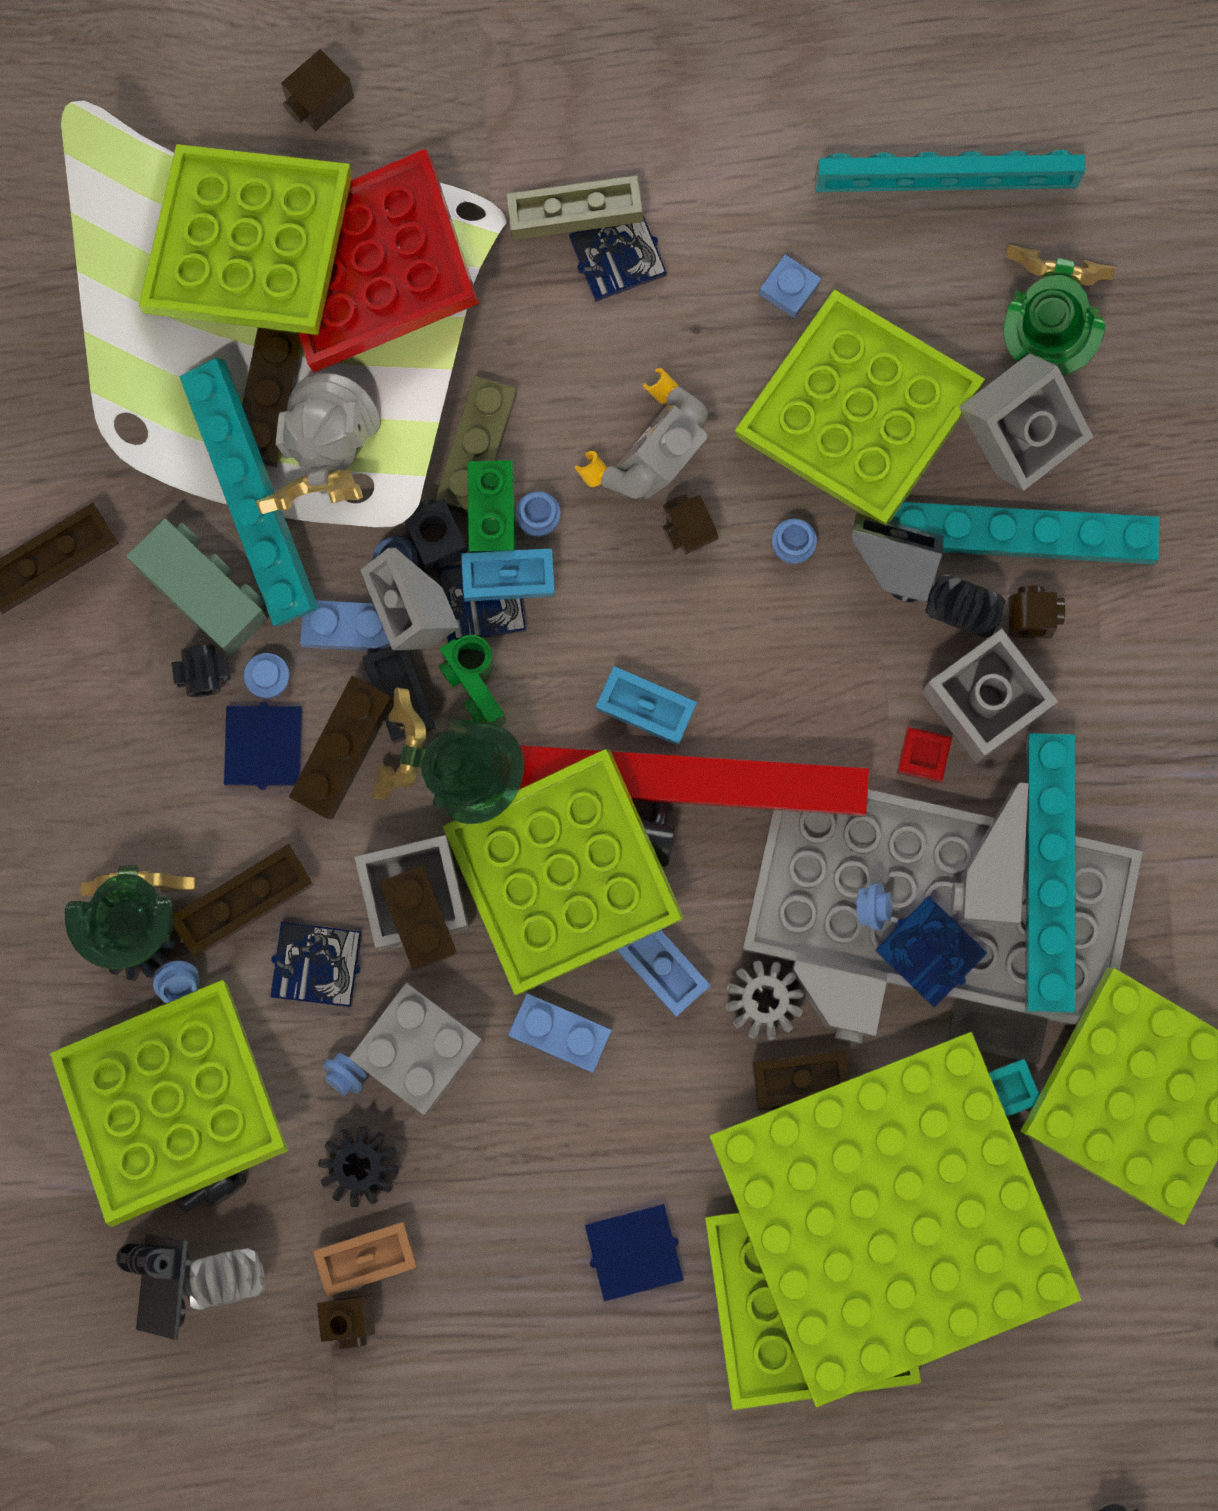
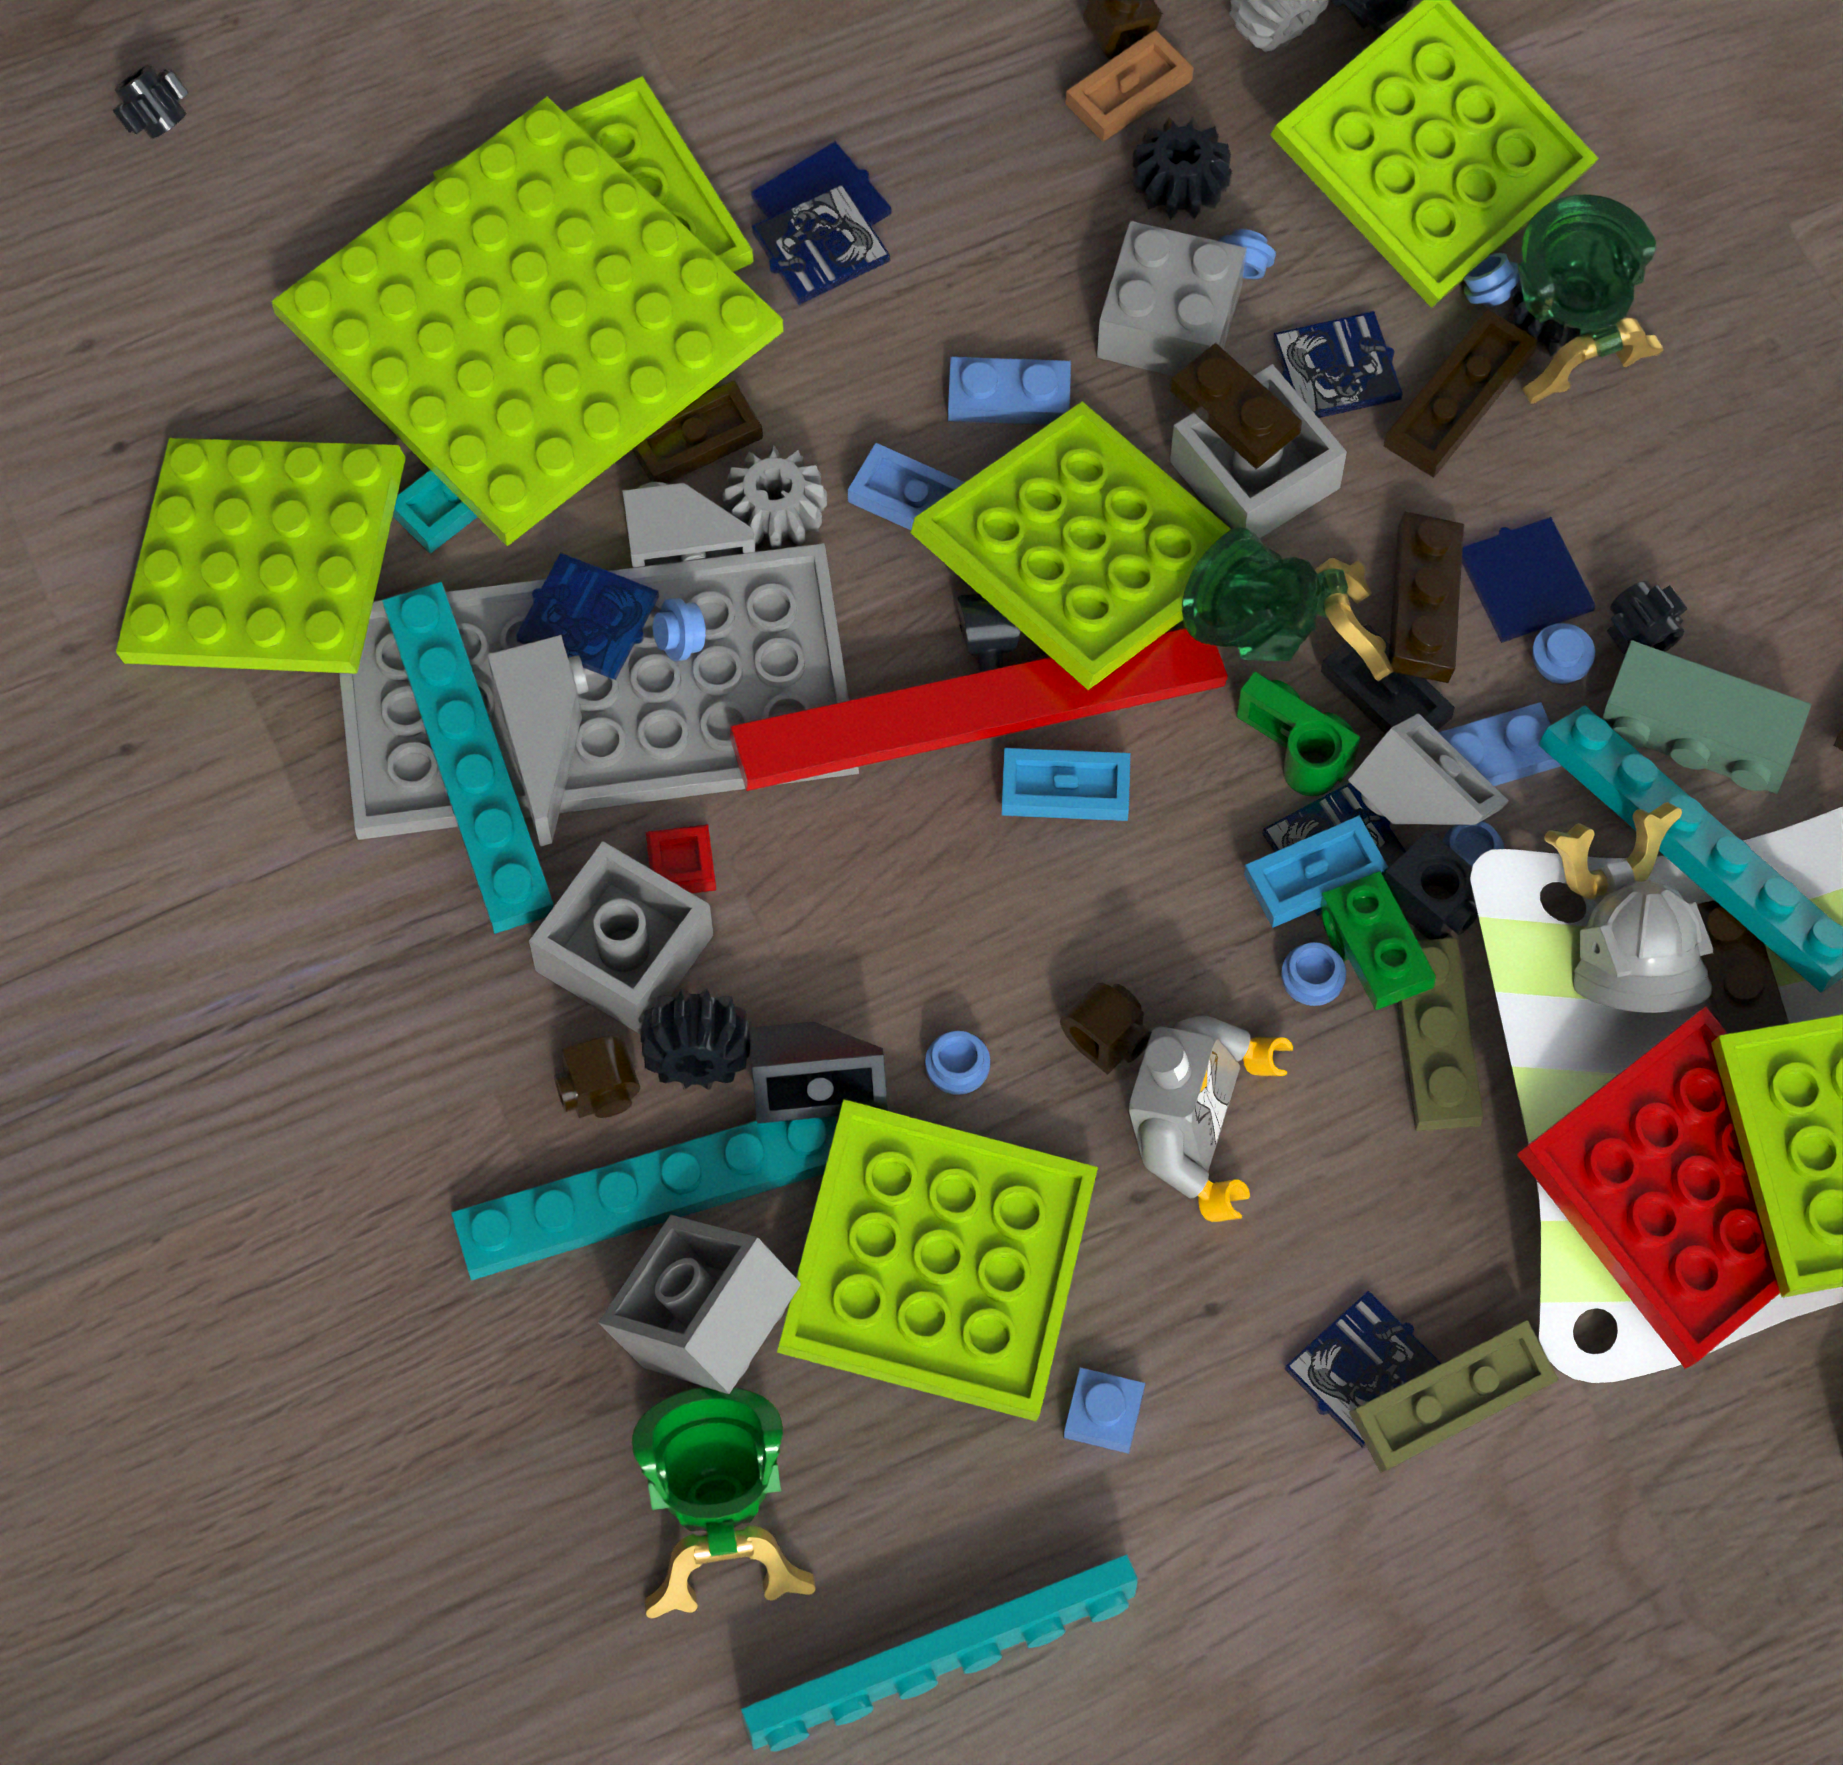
camera: 160 degrees right, 15 degrees down
(650, 1210) = (820, 243): none -> piece
(999, 1030) = (471, 561): clear smoke plate -> none

